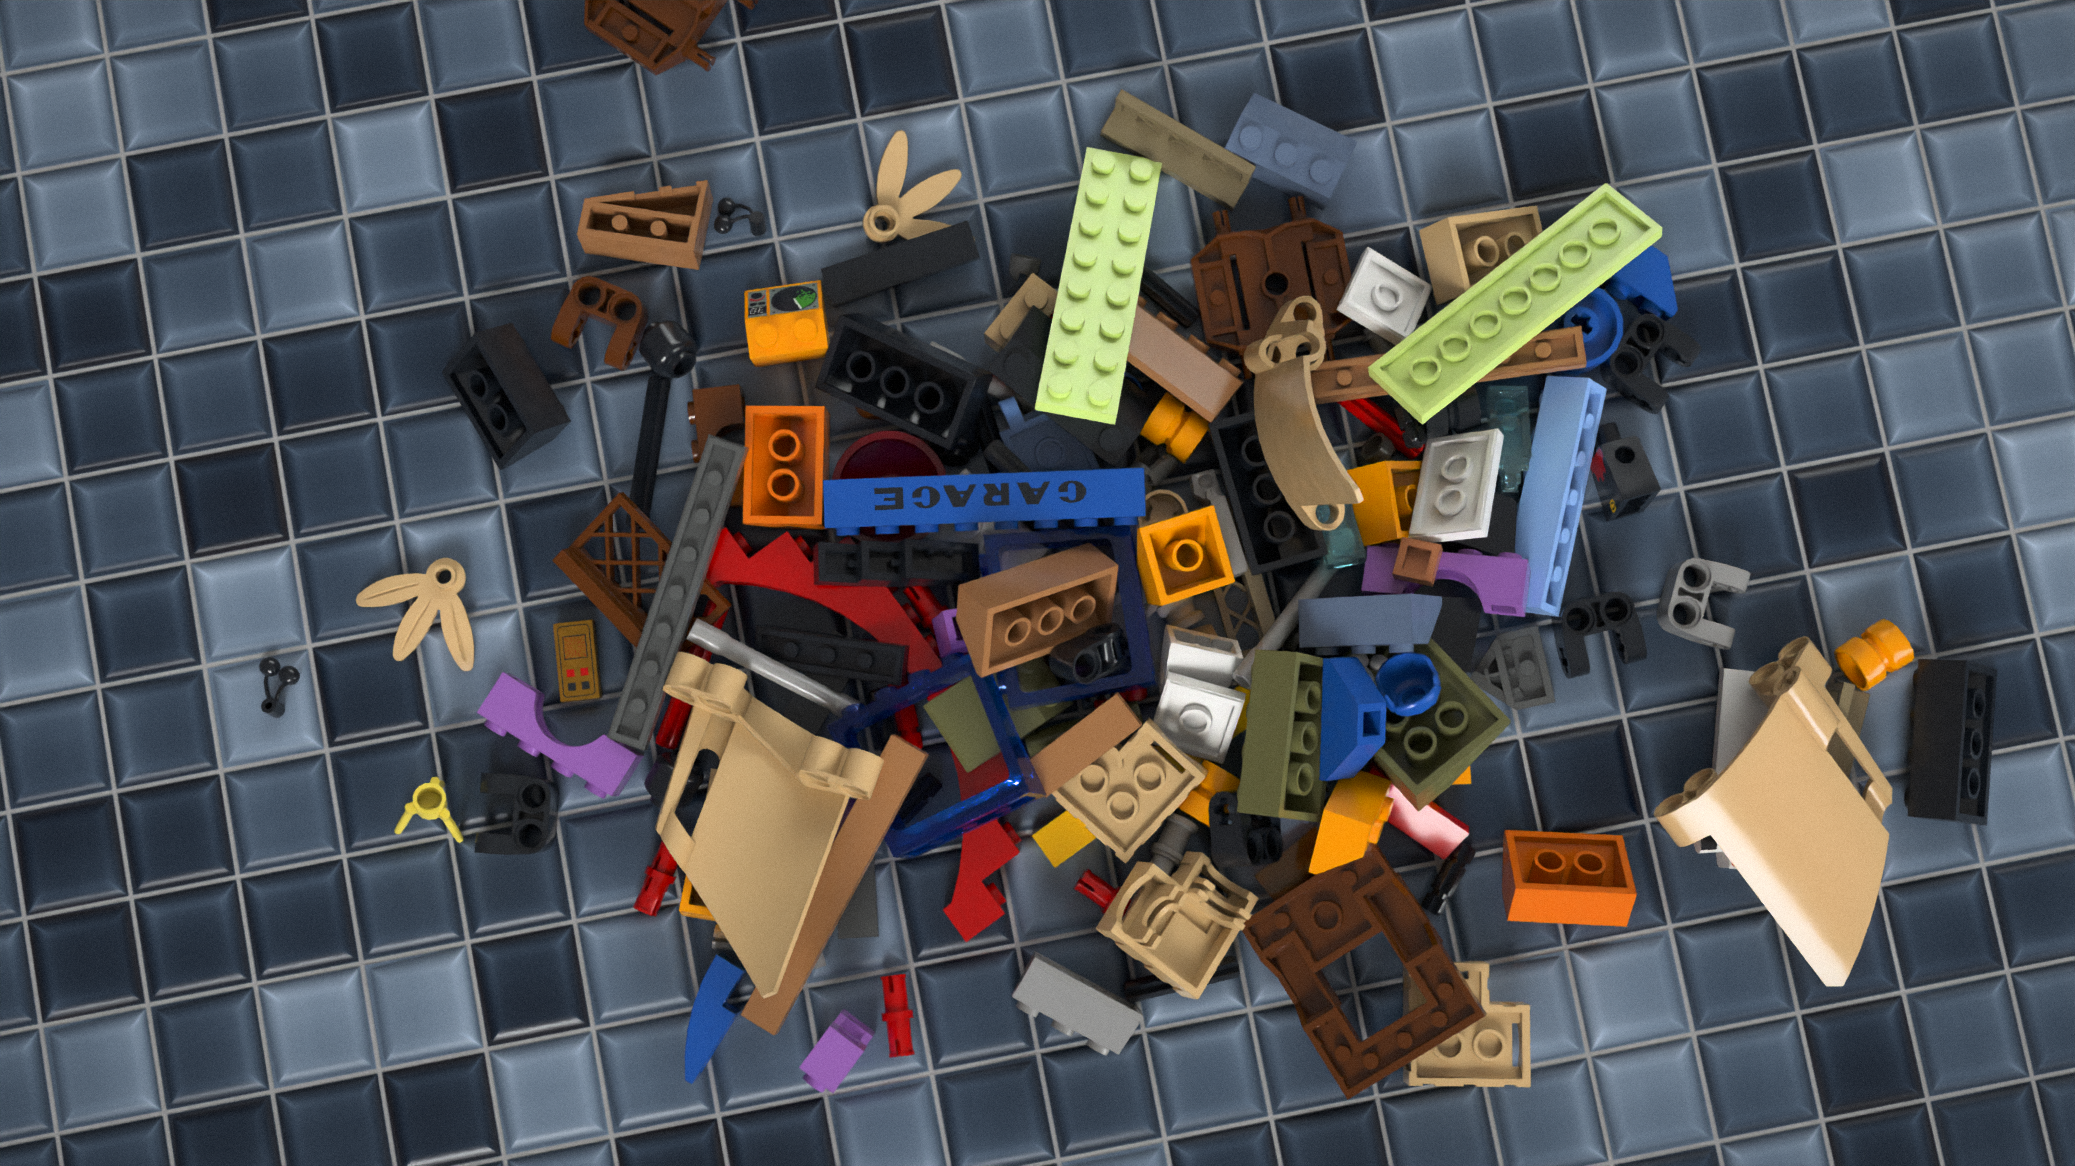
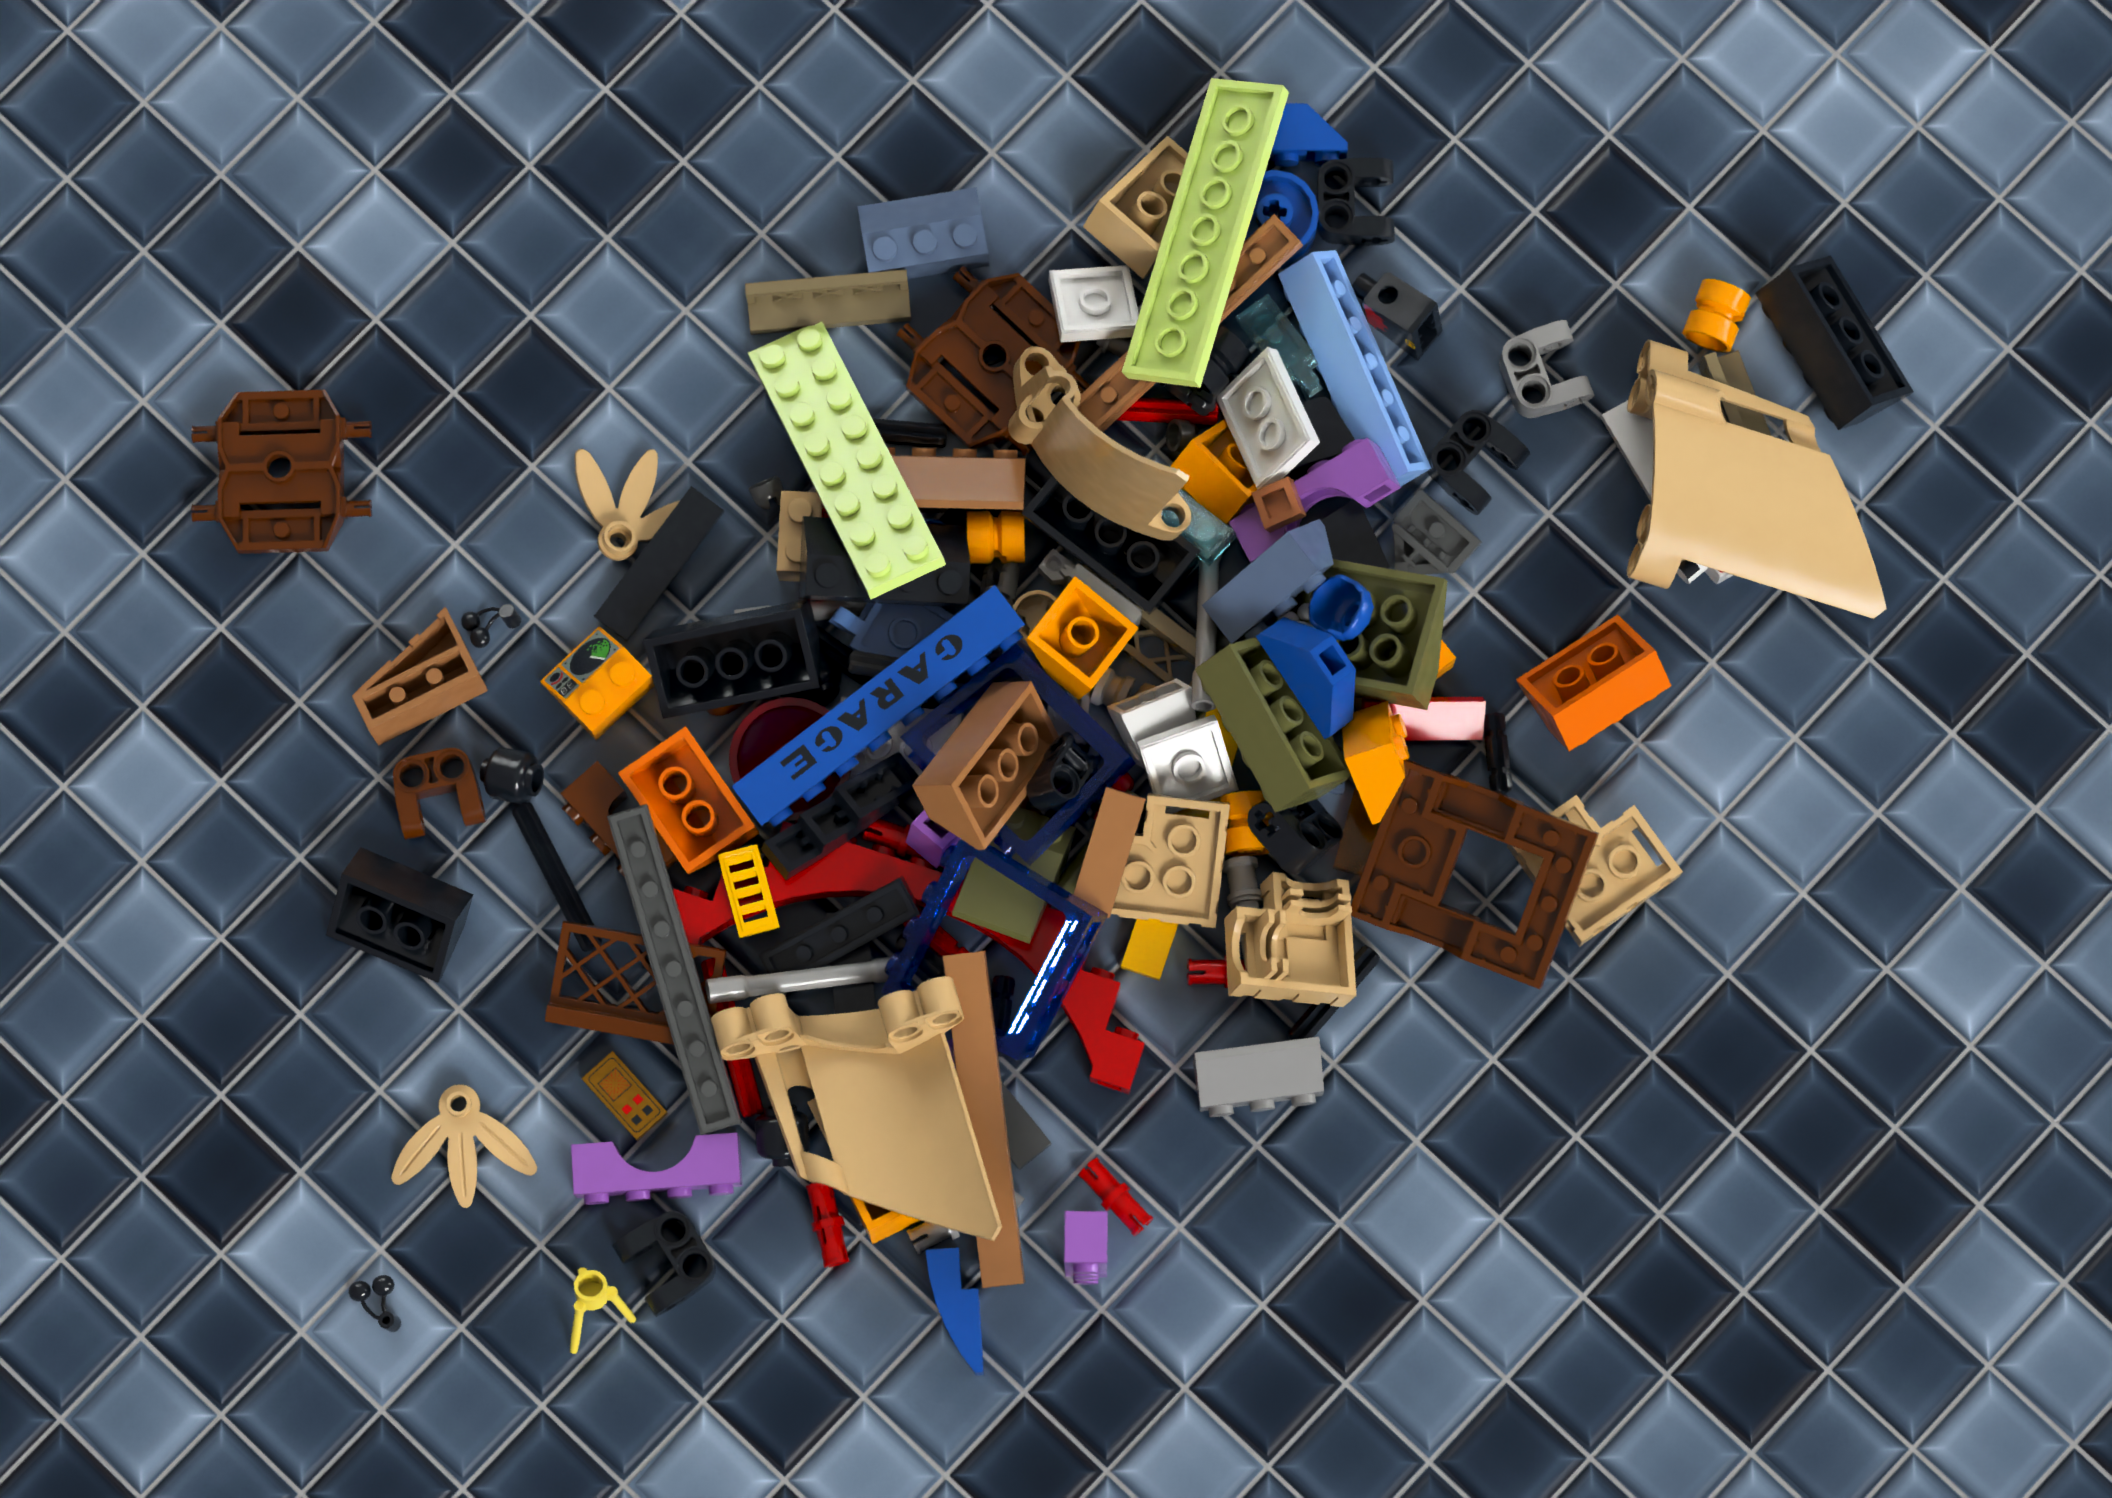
camera: 30 degrees left, 5 degrees down
(780, 536) = (740, 856): none -> yellow slope

